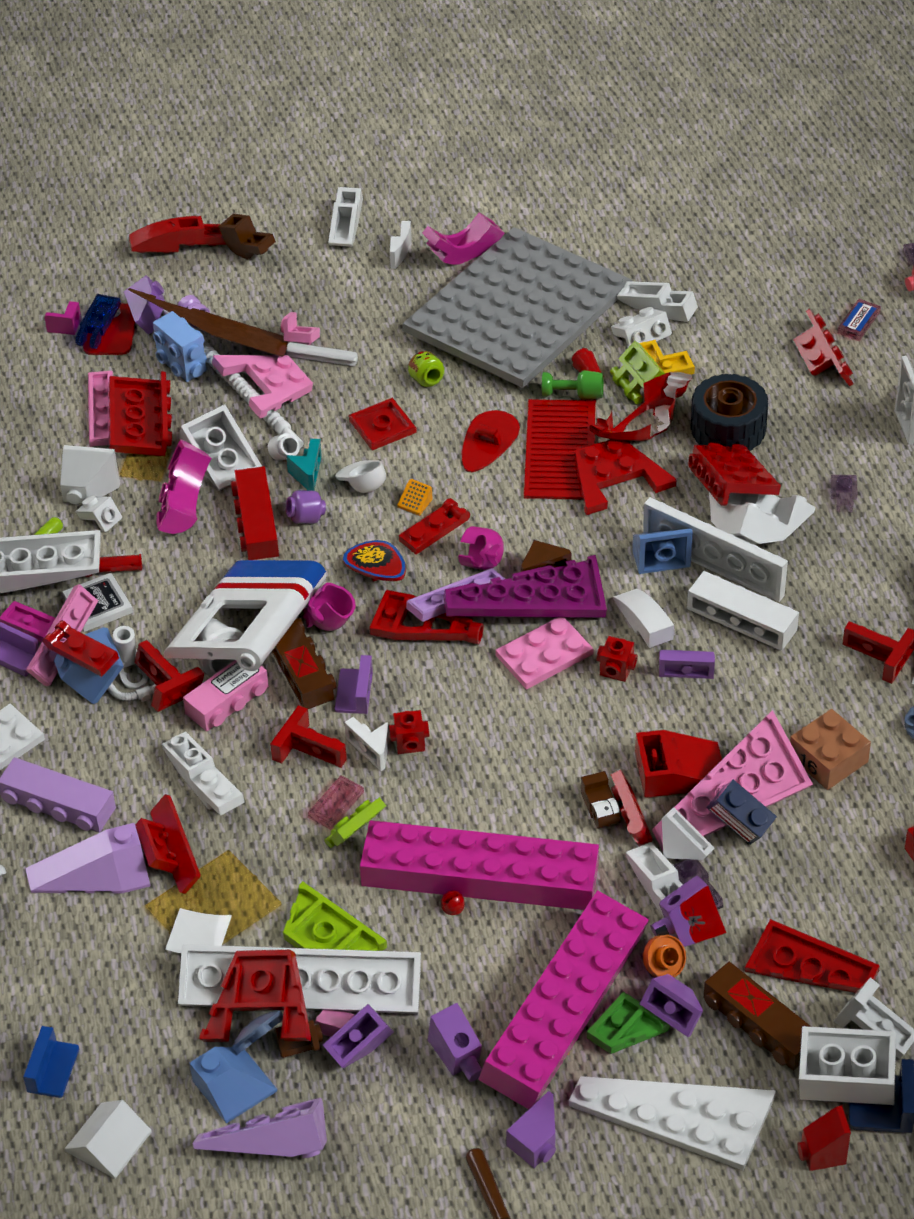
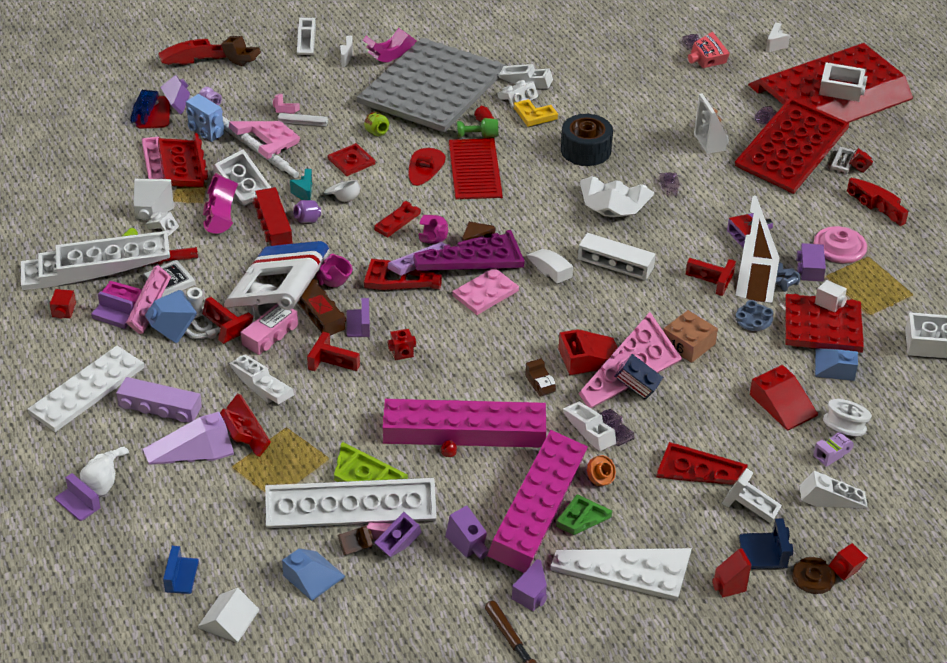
camera: 10 degrees left, 5 degrees down
(64, 323) = (120, 109): dark pink panel -> none
(81, 649) = (165, 303): red plate -> none
(197, 929) = (271, 476): white sticker -> none
(224, 327) = (235, 105): reddish brown sticker -> none
(256, 1029) = (326, 536): sand blue dish -> none
(260, 983) = (325, 505): red wing -> none
(283, 445) = (286, 174): white brick -> none
(290, 1133) = (359, 601): lavender wedge -> none
(335, 802) = (357, 392): clear pink tile -> none
(357, 820) = (375, 401): lime plate -> none
(371, 744) = (374, 353): white slope -> none
(376, 560) = (361, 241): shield -> none
(415, 497) = (382, 202): light orange slope -> none
(612, 464) = (514, 174): red wing -> none
(616, 658) = (536, 290): red brick -> none
(631, 810) = (562, 382): plate -> none
(638, 364) = (523, 114): lime plate -> none
(658, 395) = (538, 132): red animal -> none
(662, 550) = (556, 222): medium blue slope -> none
(673, 1003) = (613, 498): medium lavender slope -> none
(682, 839) = (600, 397): white slope -> none
(686, 664) = (584, 292): medium lavender panel -> none
(689, 914) = (615, 441): torso -> none
(722, 551) = (590, 218): white plate -> none
(730, 471) = (591, 172): red bracket -> none
(757, 1013) = (673, 502): reddish brown brick -> none
(817, 349) = (638, 101): bracket -> none
(847, 1065) = (739, 526): white slope -> none
(859, 319) = (661, 82): tile -> none

